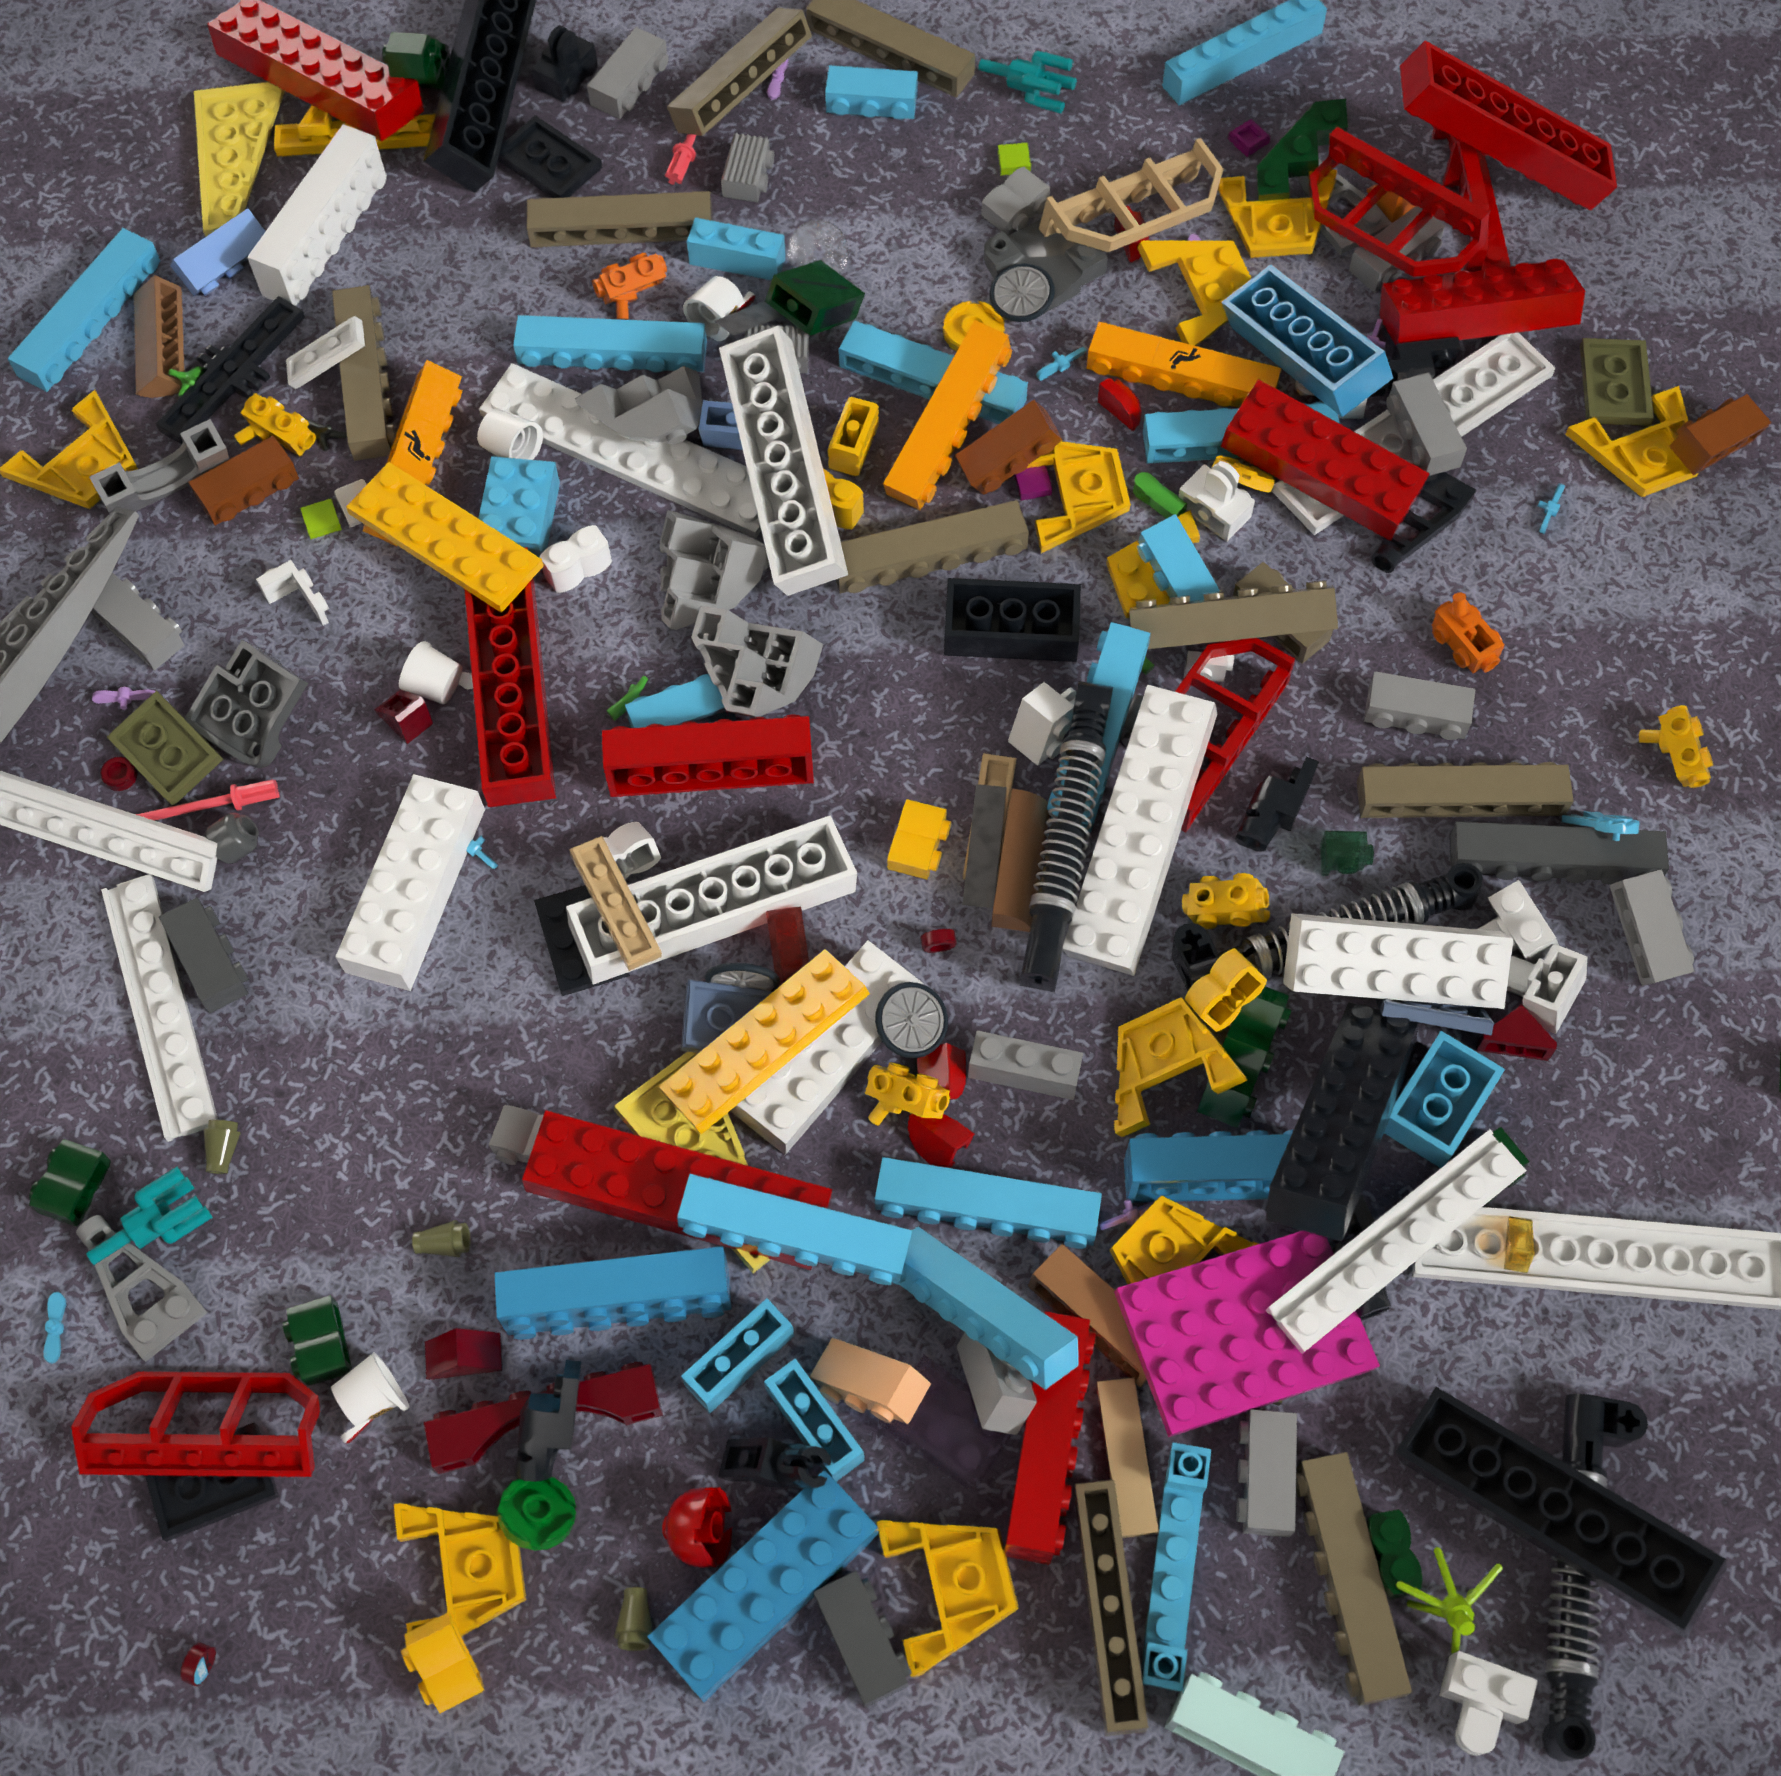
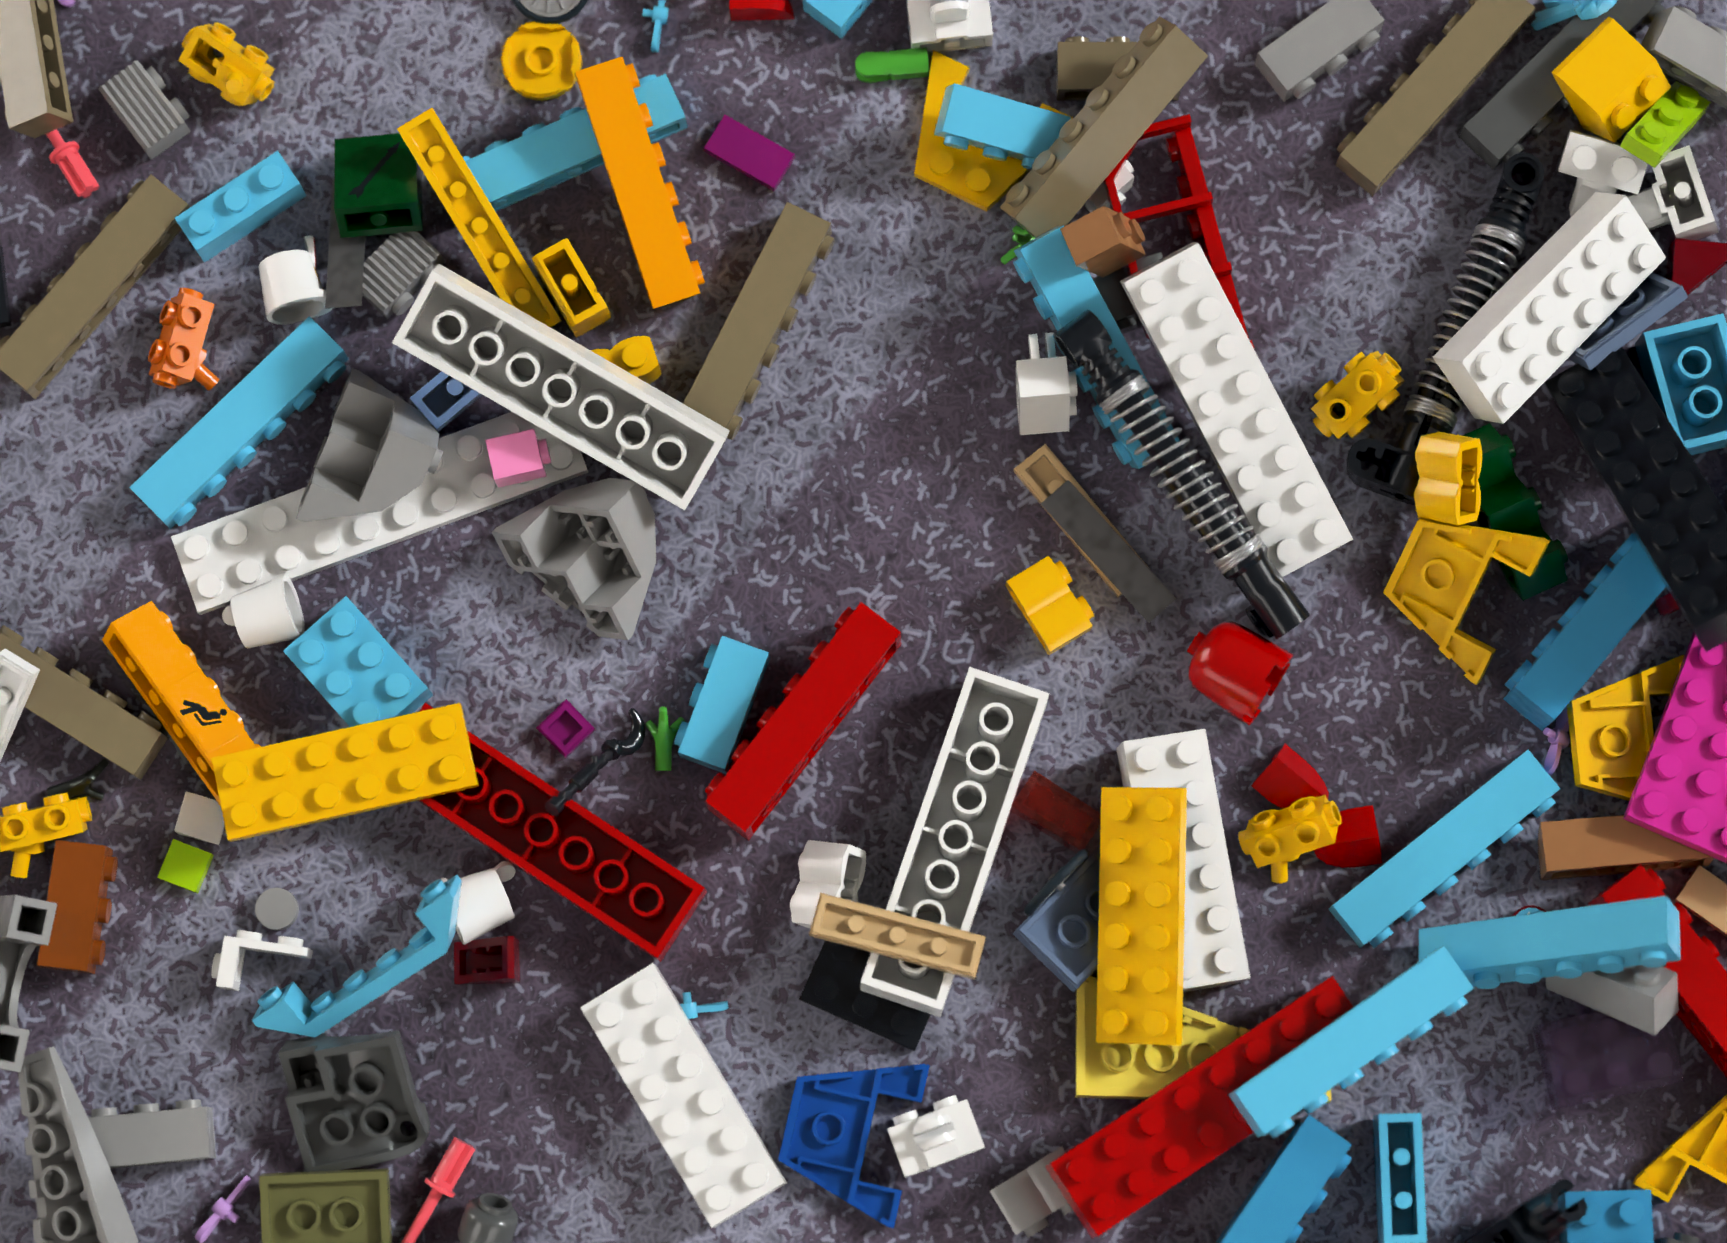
camera: 45 degrees left, 15 degrees up
(336, 583) = (276, 909): none -> light grey tile
(395, 648) = (292, 1011): none -> medium azure slope
(466, 985) = (831, 1130): none -> blue wing
(512, 1047) = (935, 1137): none -> white brick
(579, 557) = (469, 651): white brick -> none
(587, 645) = (565, 728): none -> magenta tile
(594, 672) = (610, 751): none -> black piece
(722, 483) = (517, 457): none -> bright pink brick
(754, 663) = (741, 597): light grey brick -> none
(811, 183) = (240, 71): none -> yellow brick
(813, 1418) = (1509, 1162): medium azure brick -> none
(814, 235) = (316, 150): clear dish -> none
(843, 351) = (475, 217): none -> yellow plate
(869, 1381) = (1525, 1092): light nougat brick -> none
(911, 1020) = (1231, 769): light grey wheel -> none
(938, 940) = (1165, 675): dark red tile -> none
(981, 976) = (1236, 668): none -> red cylinder
(1009, 447) = (727, 159): dark orange brick -> none
(1012, 619) = (907, 321): black brick -> none
(1019, 860) = (1151, 533): medium nougat brick -> none
(1025, 1065) = (1351, 706): light grey brick -> none
(1089, 488) = (822, 117): yellow wing -> none
(1164, 660) = (1104, 241): none -> medium nougat brick
(1275, 806) = (1301, 260): black plate -> none
(1345, 852) = (1399, 245): clear green brick -> none
(1576, 878) = (1610, 81): none -> yellow slope
(1586, 935) = (1665, 124): none -> lime plate

